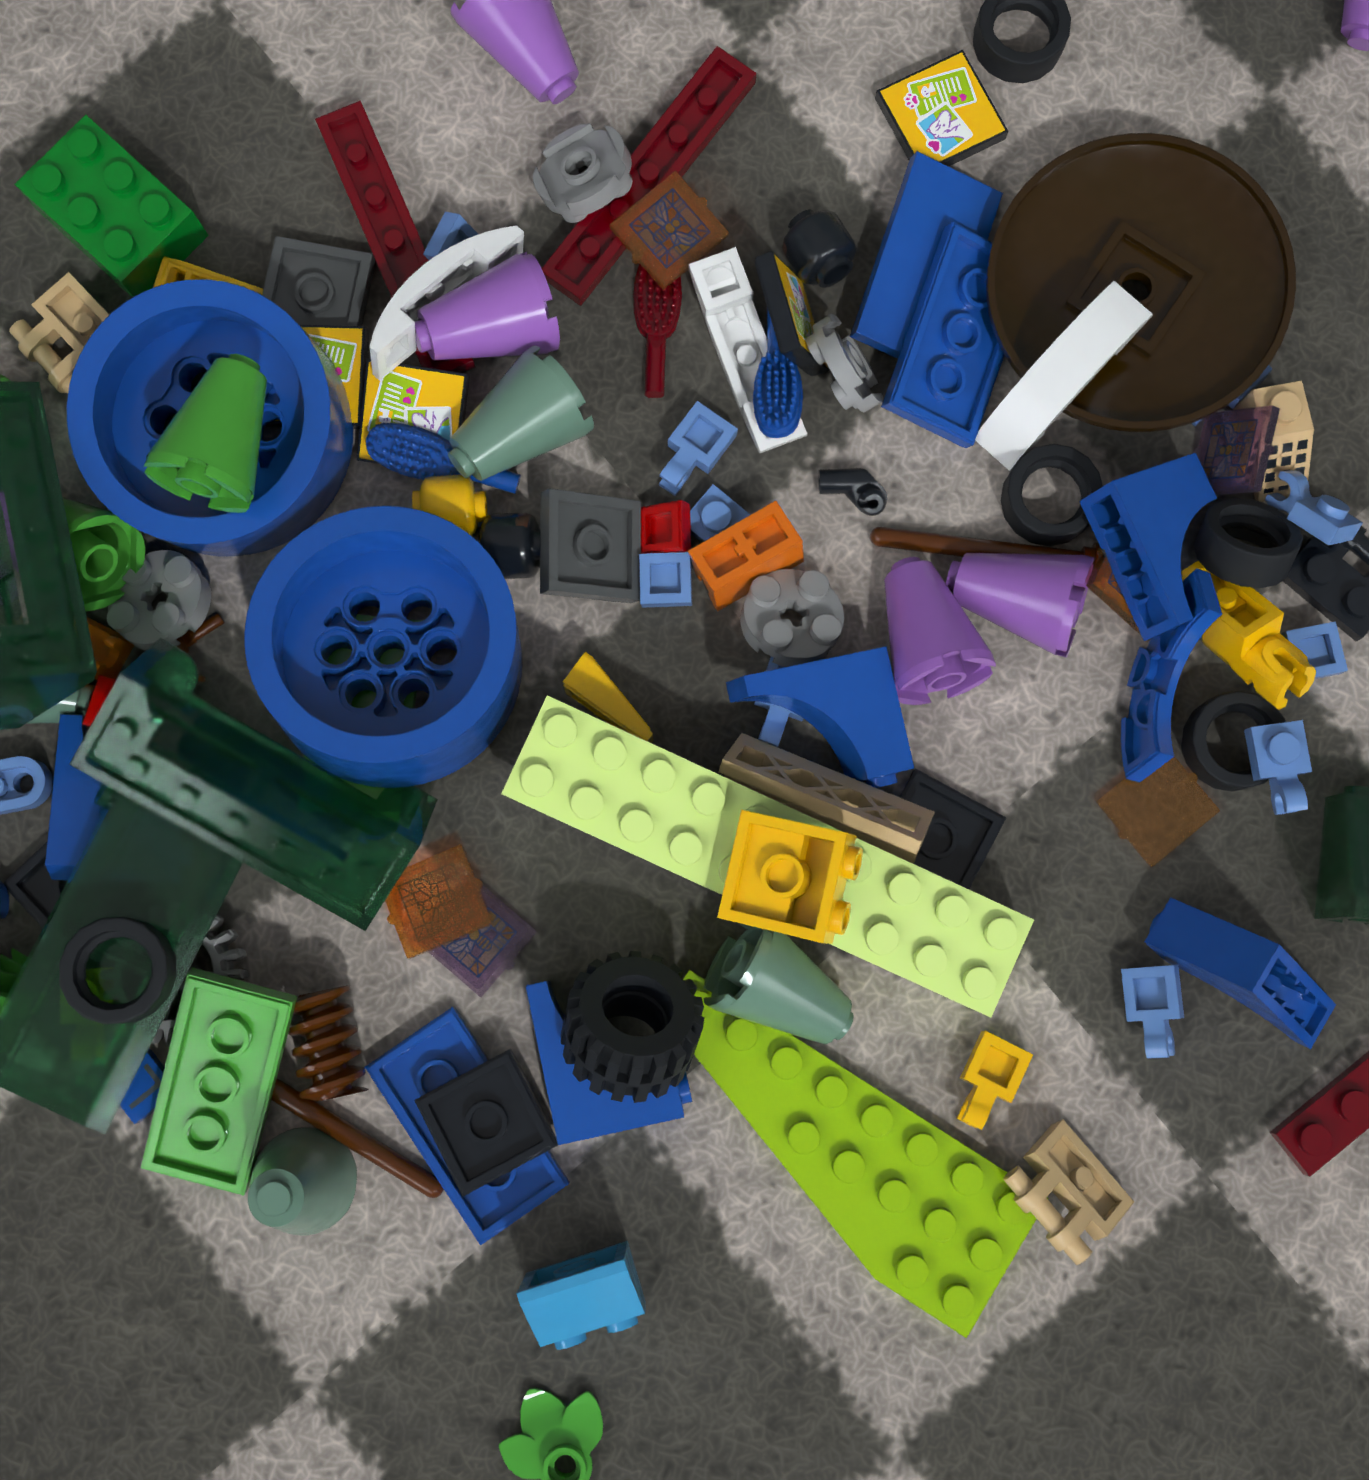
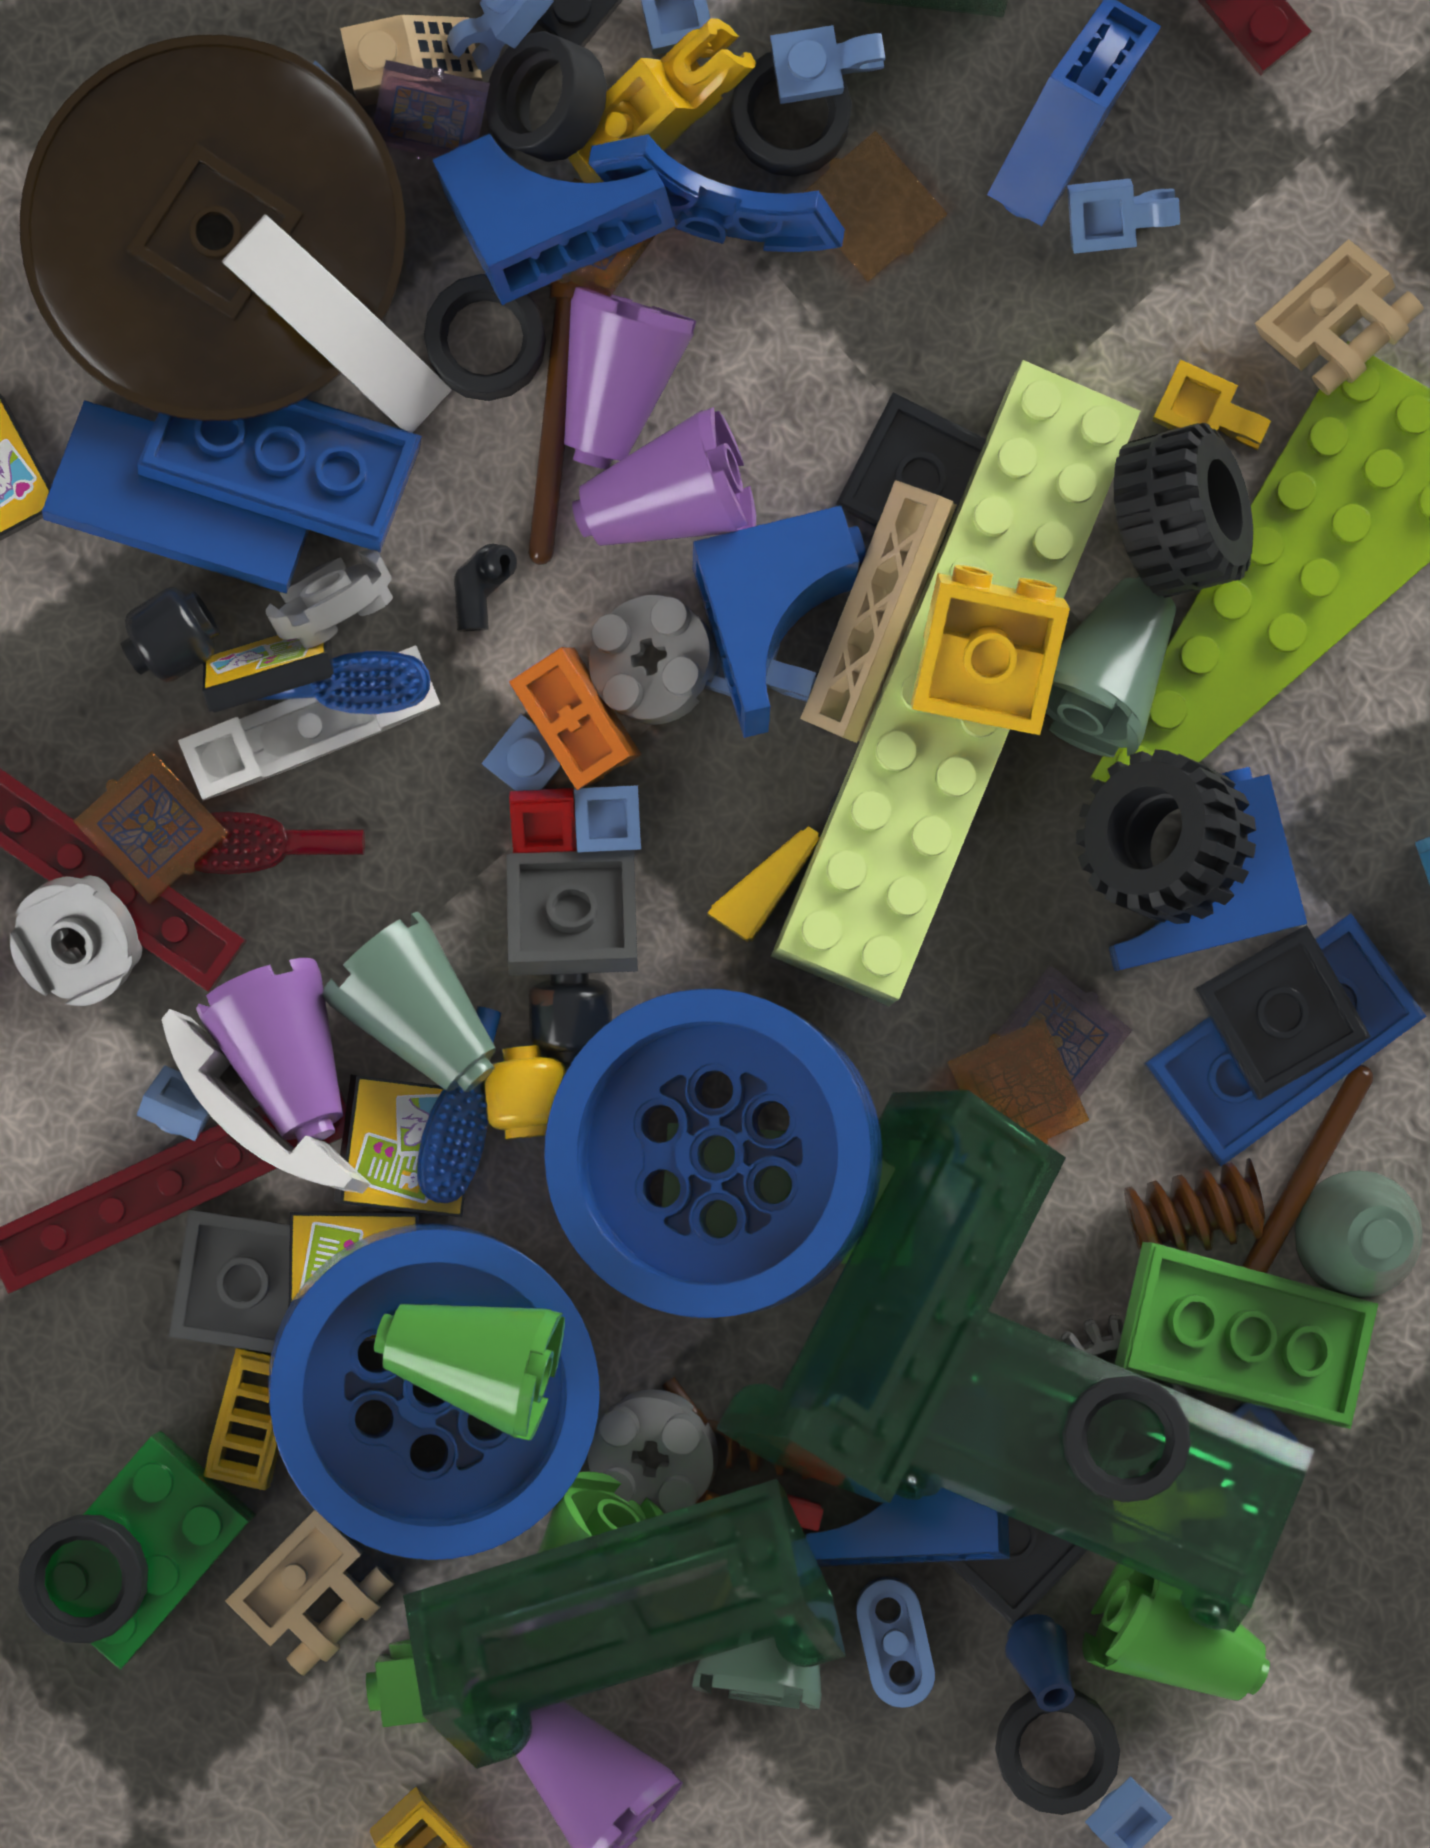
camera: 90 degrees left, 5 degrees up
(57, 118) = (33, 1573): none -> black tyre
(697, 442) = (429, 781): medium blue plate -> none
(907, 1050) = (1183, 510): none -> black tyre

